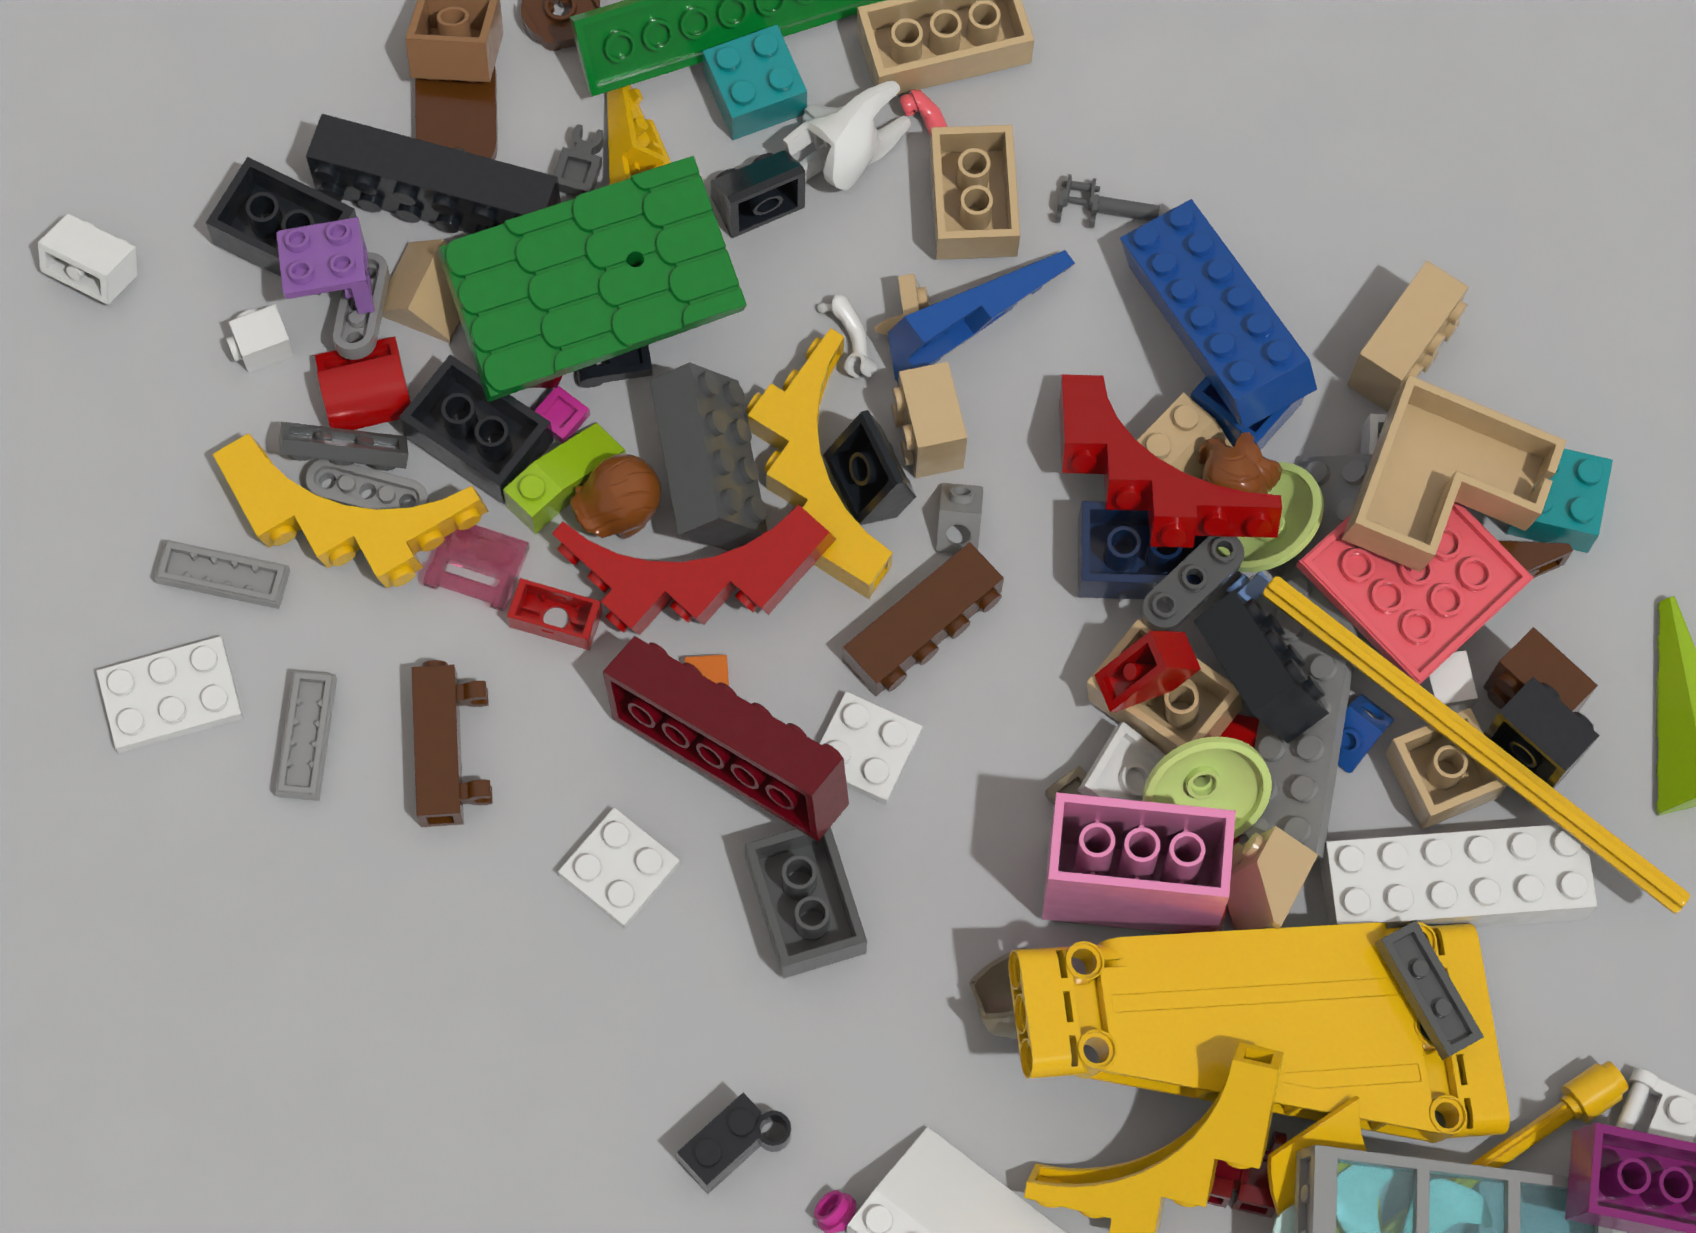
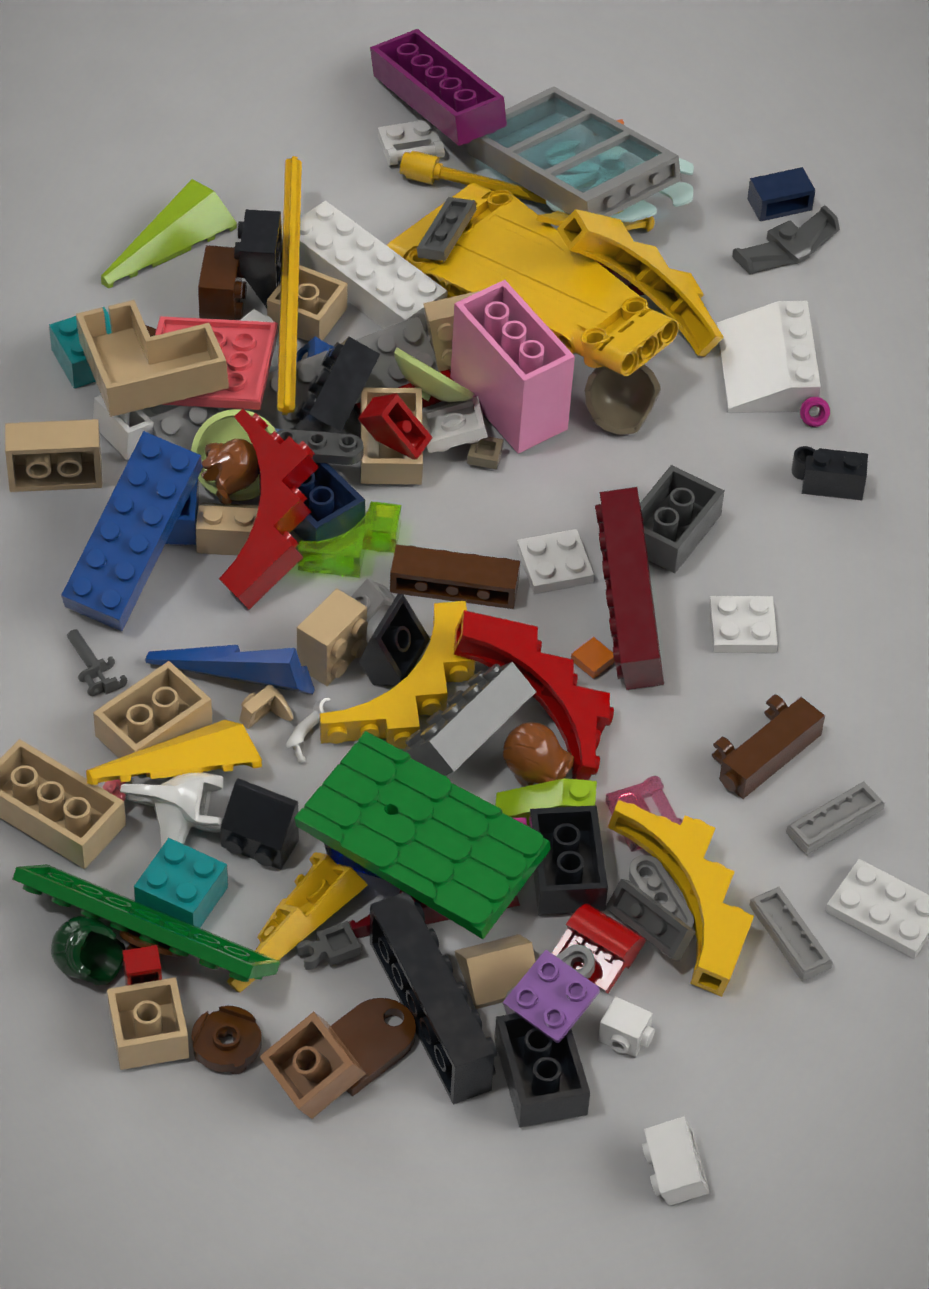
camera: 130 degrees left, 20 degrees down
(535, 599) = (629, 735): red piece -> none
(892, 196) = (199, 751): none -> yellow wedge
(1050, 594) = (345, 553): none -> clear neon green arch

